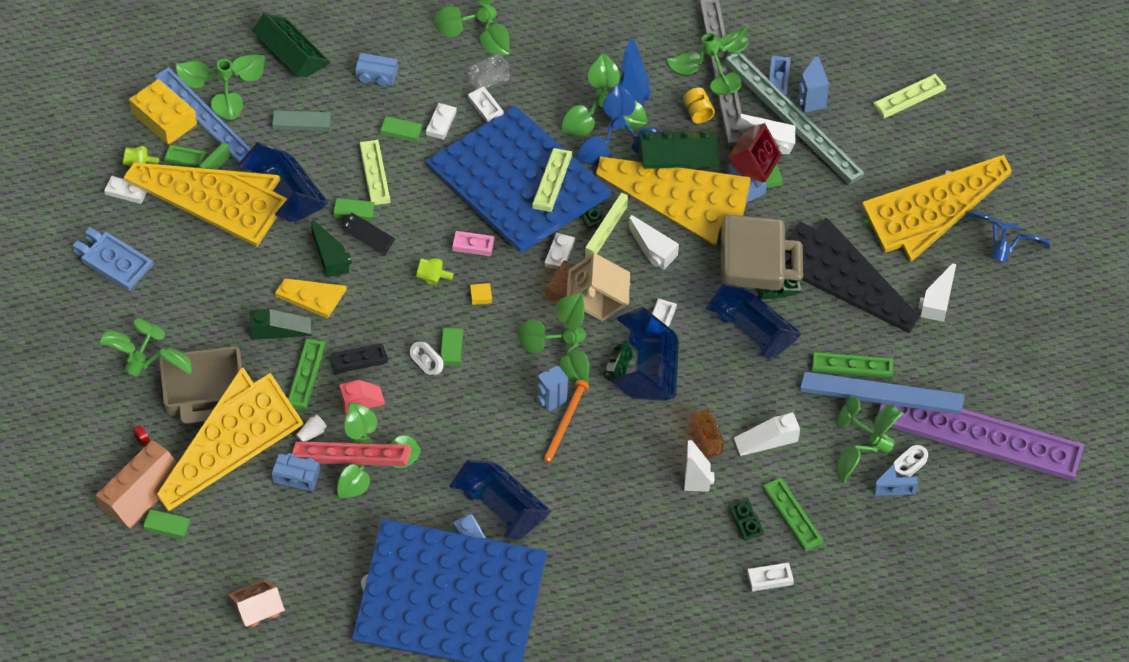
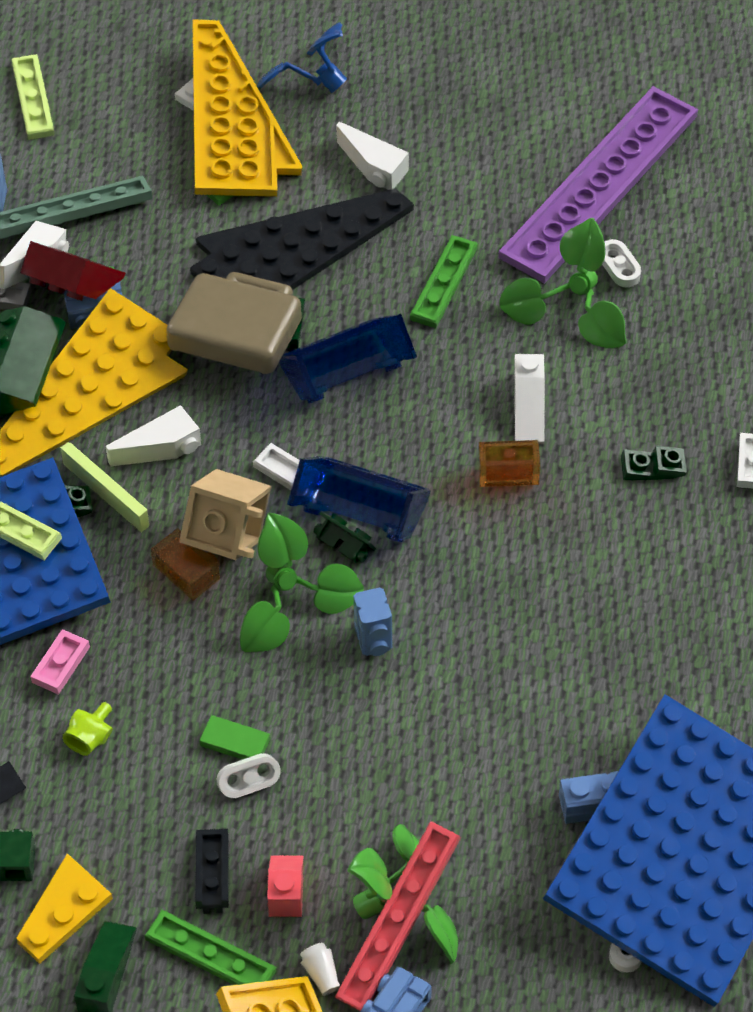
camera: 70 degrees left, 0 degrees up
(481, 293) = (154, 677): yellow tile -> none
(502, 494) = (542, 731): clear blue windscreen -> none
(559, 250) = (120, 558): white plate -> none
(581, 386) = (430, 636): orange bar -> none
(697, 470) = (570, 490): white slope -> none
(792, 514) = (658, 411): bright green tile -> none
(883, 393) = (509, 258): medium blue tile -> none
(890, 485) = (646, 290): medium blue slope -> none

